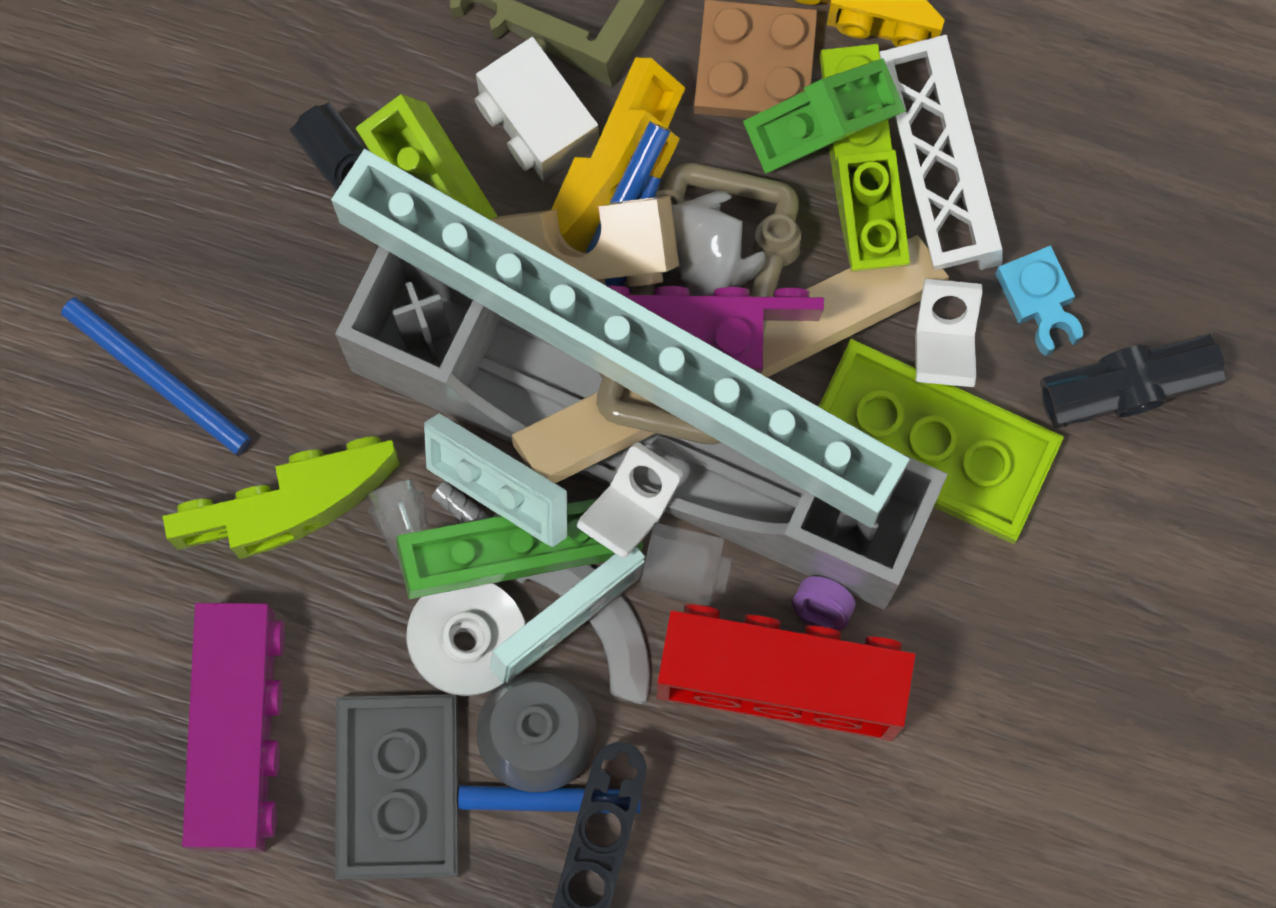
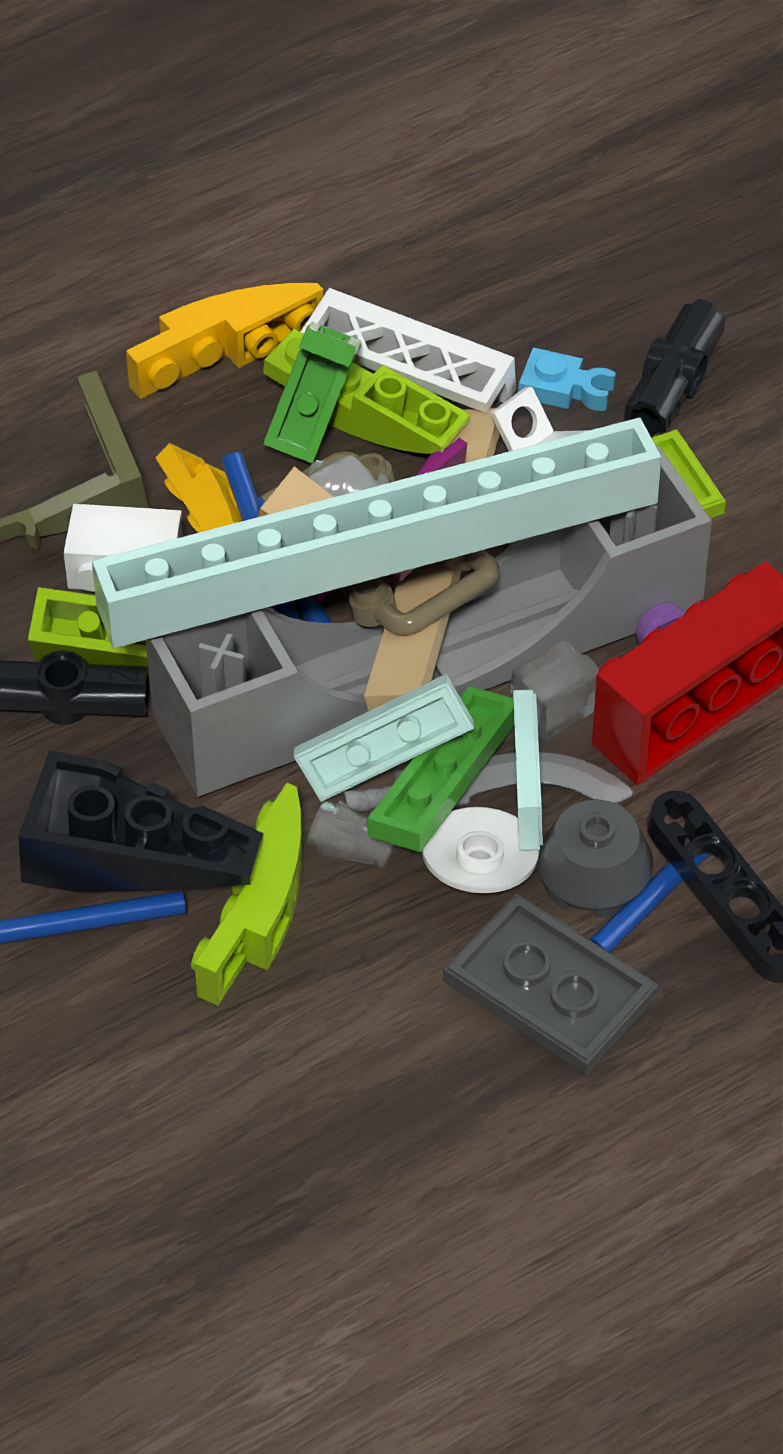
camera: 50 degrees left, 25 degrees down
(232, 727) = (403, 1048): magenta brick -> none
(244, 354) = (112, 834): none -> black wedge
(624, 510) = (485, 685): white bracket -> none
(752, 57) = (218, 414): medium nougat plate -> none

